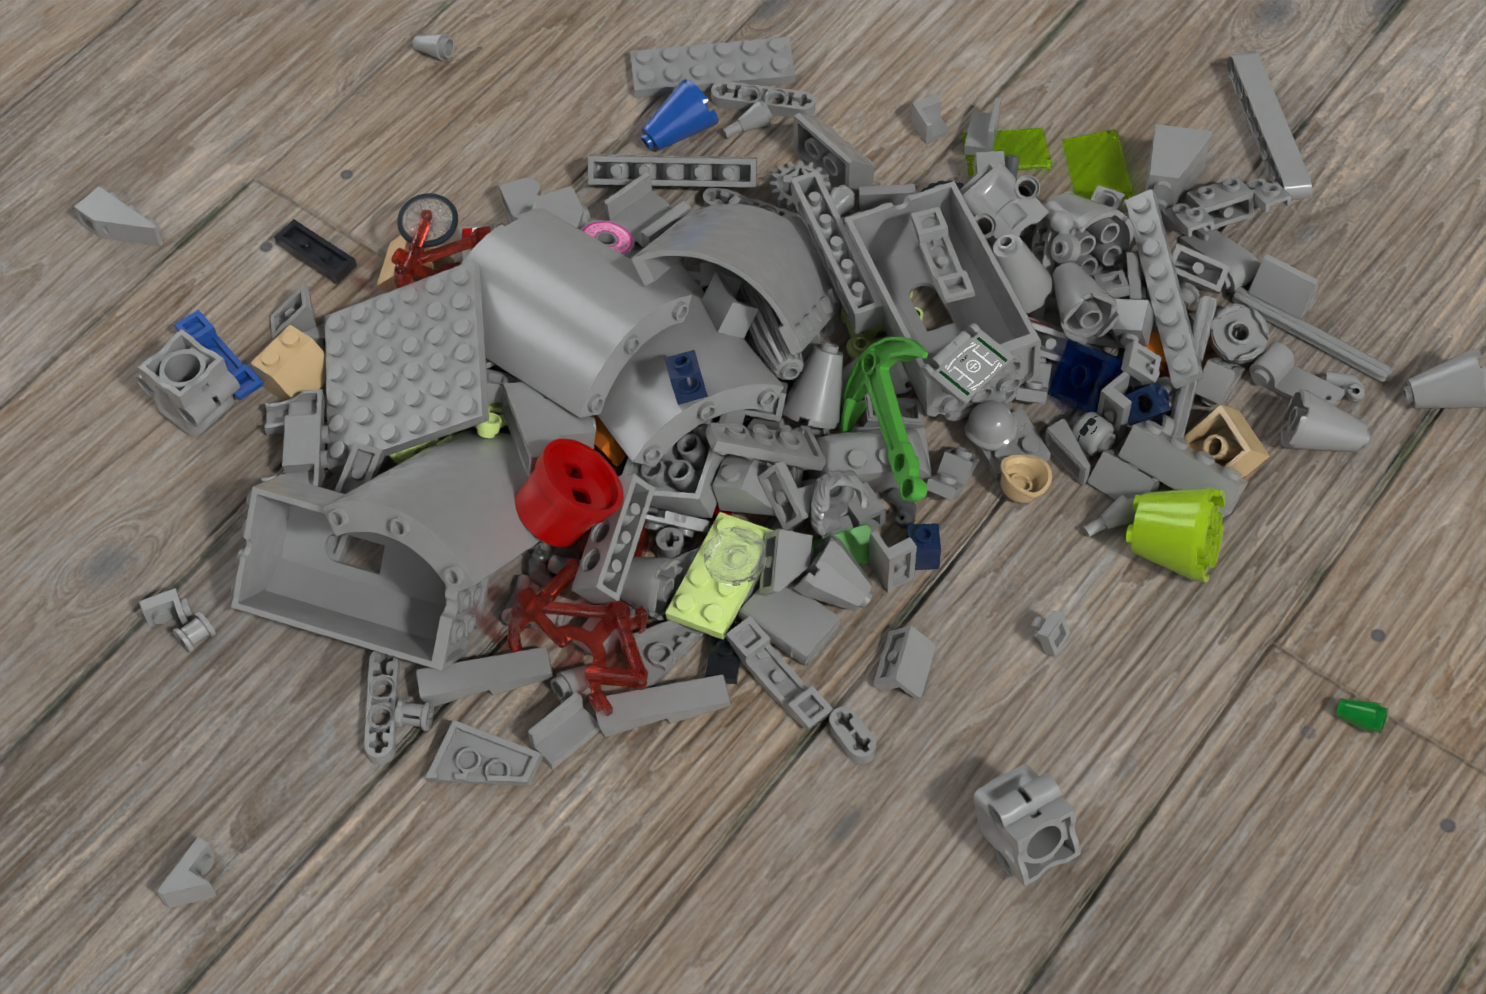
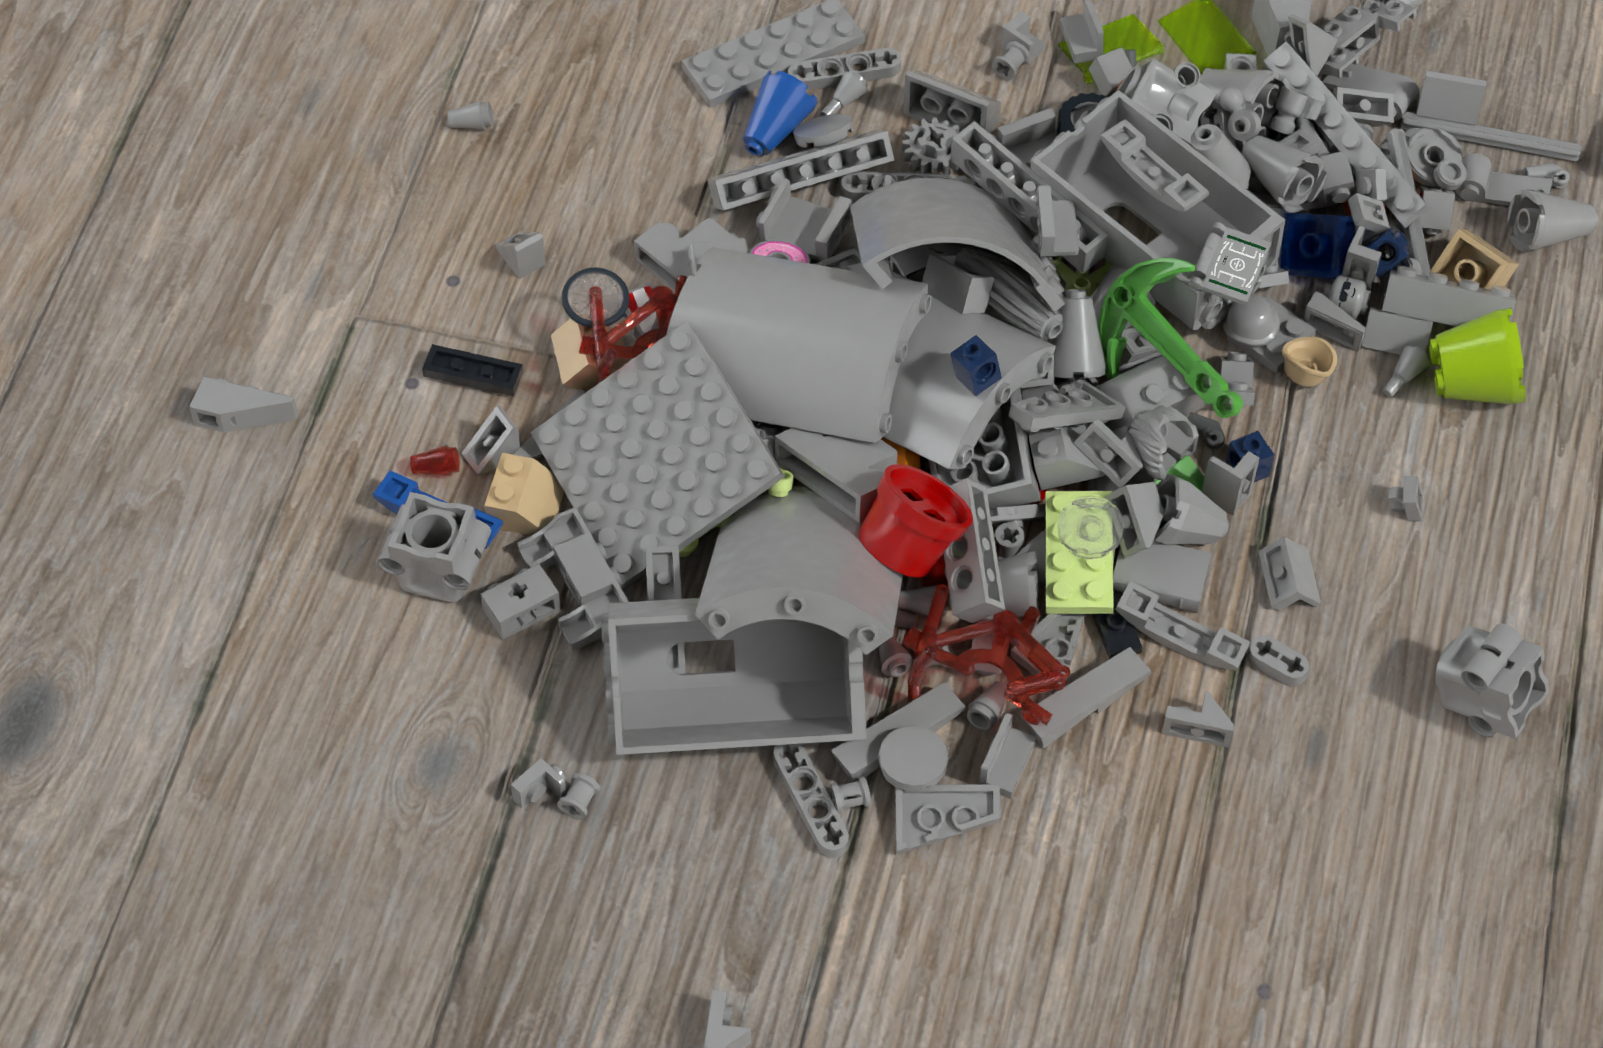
camera: 25 degrees left, 0 degrees up
(241, 453) = (520, 601): none -> light grey brick
(245, 316) = (436, 462): none -> clear red cone
(410, 170) = (523, 252): none -> light grey slope
(477, 702) = (913, 758): none -> light grey tile
(711, 144) = (823, 130): none -> light grey tile
(750, 768) = (1207, 726): none -> light grey slope
(837, 280) = (1056, 224): none -> light grey panel
(908, 134) = (1007, 64): none -> light grey bush
(1125, 246) = (1293, 105): none -> light grey piece
(1158, 338) = (1371, 183): none -> light grey plate
(1172, 197) = (1310, 42): none -> light grey slope
(1244, 354) = (1450, 174): none -> light grey tile

